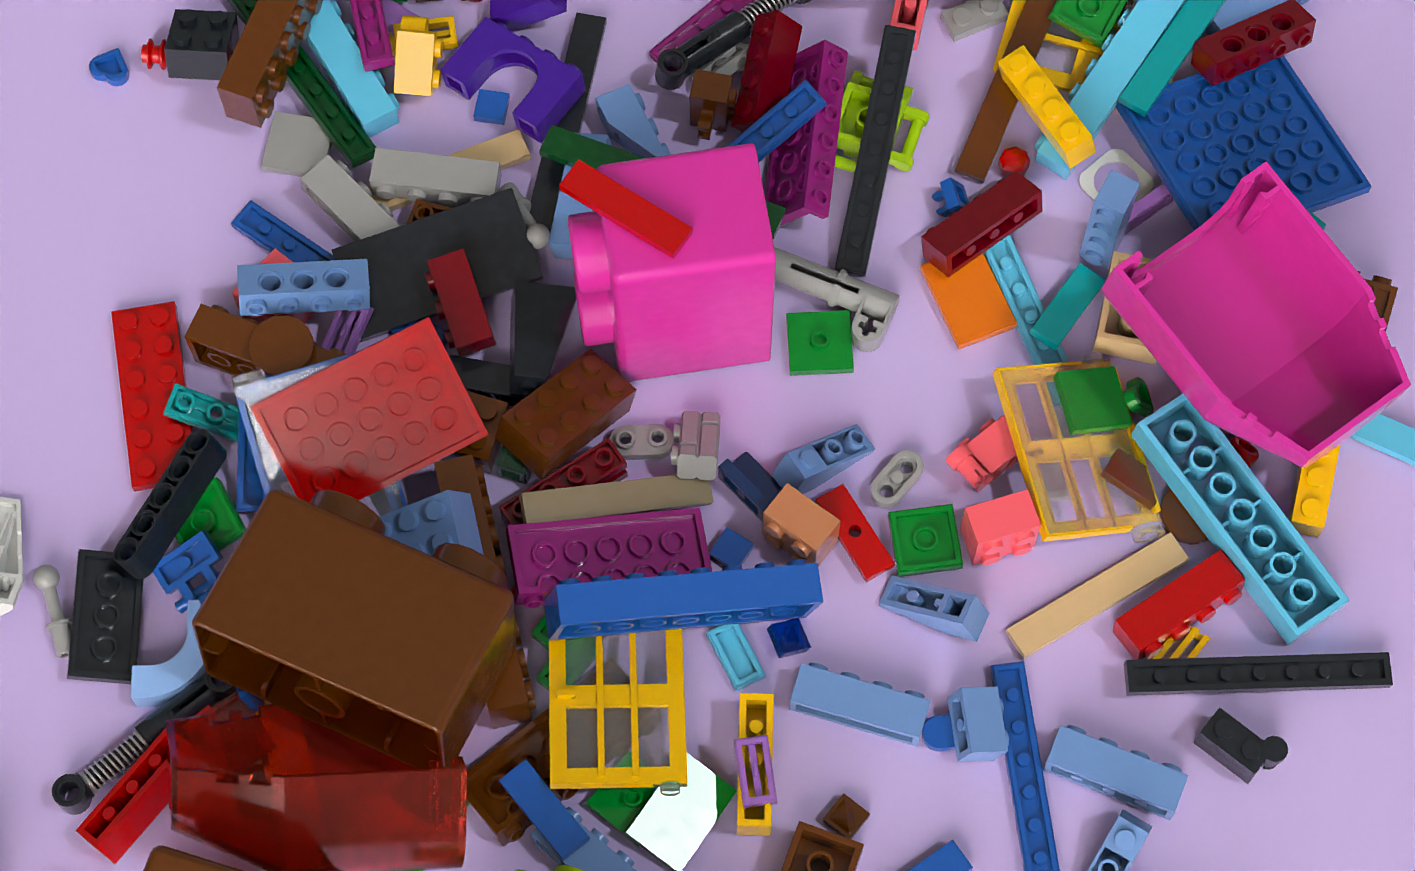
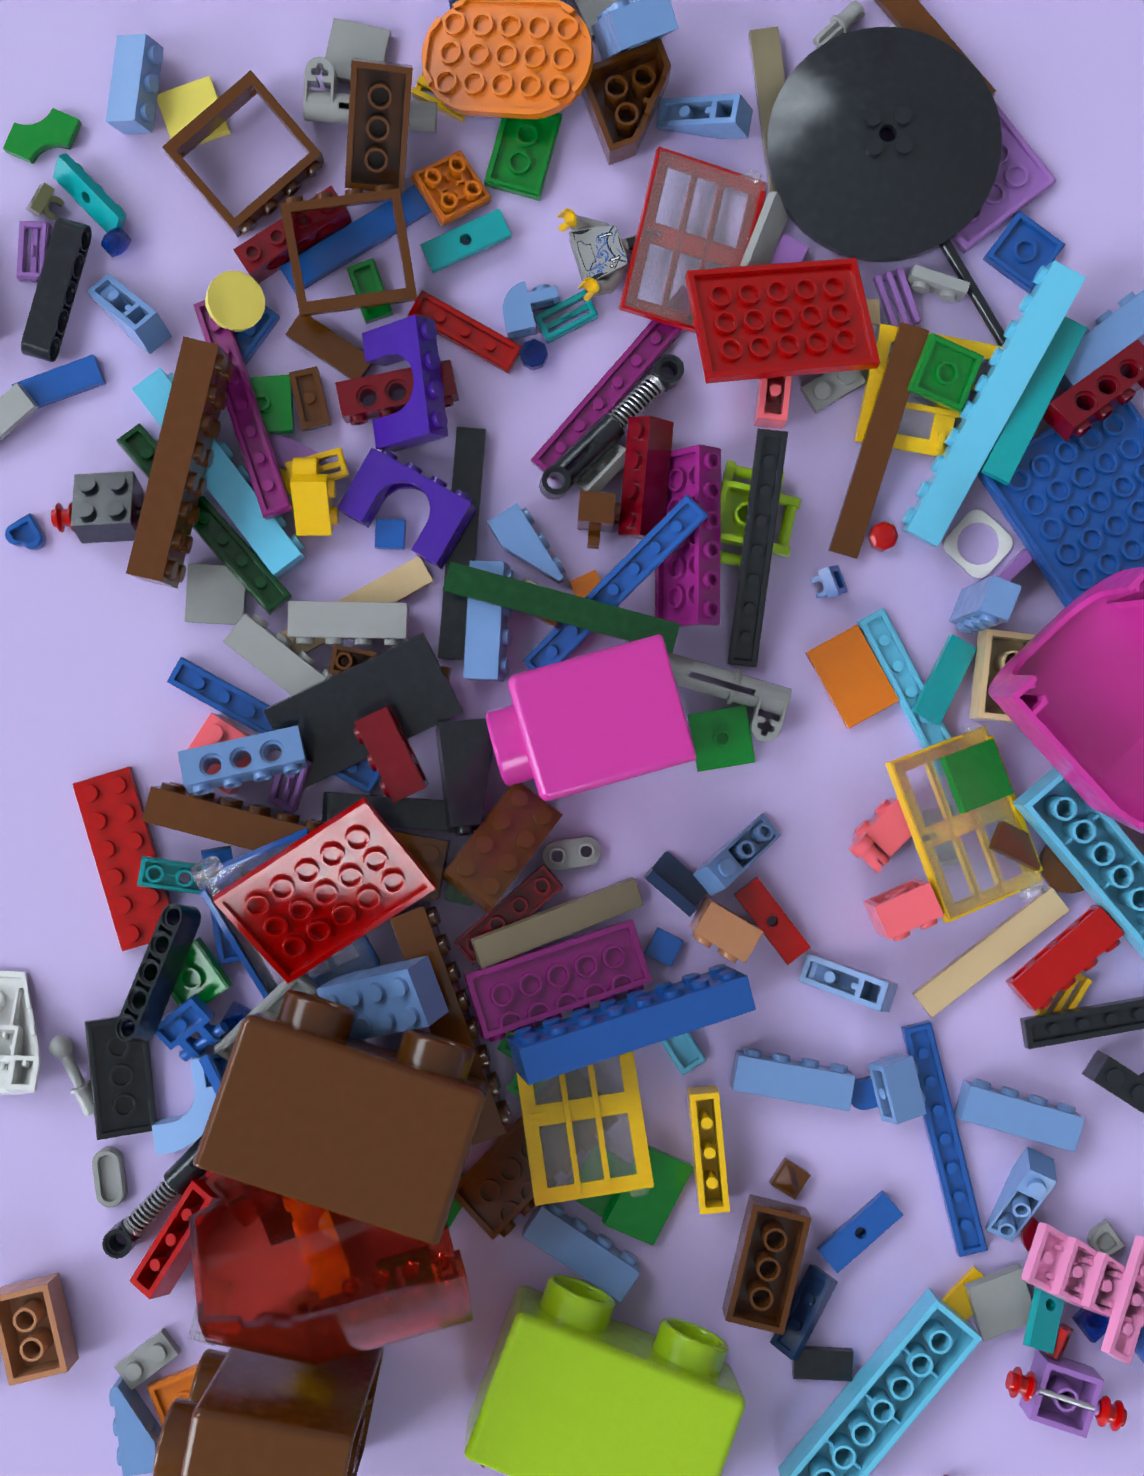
camera: 10 degrees left, 20 degrees up
(71, 729) = (109, 1176): none -> light grey tile
(281, 345) = (232, 824): reddish brown tile -> none
(536, 233) = (451, 671): light grey pin -> none
(544, 810) = (531, 1219): blue tile -> none
(626, 208) = (544, 726): red tile -> none
(697, 446) = (624, 859): brick -> none
(758, 800) = (705, 1142): medium lavender tile -> none
(788, 638) = (725, 1030): clear blue tile -> none
(895, 480) = (804, 865): light grey plate -> none
(925, 540) = (835, 919): green plate -> none
(981, 223) = (860, 607): dark red brick -> none
(1046, 107) = (915, 489): yellow brick -> none
(1138, 397) = (1014, 761): green tile -> none

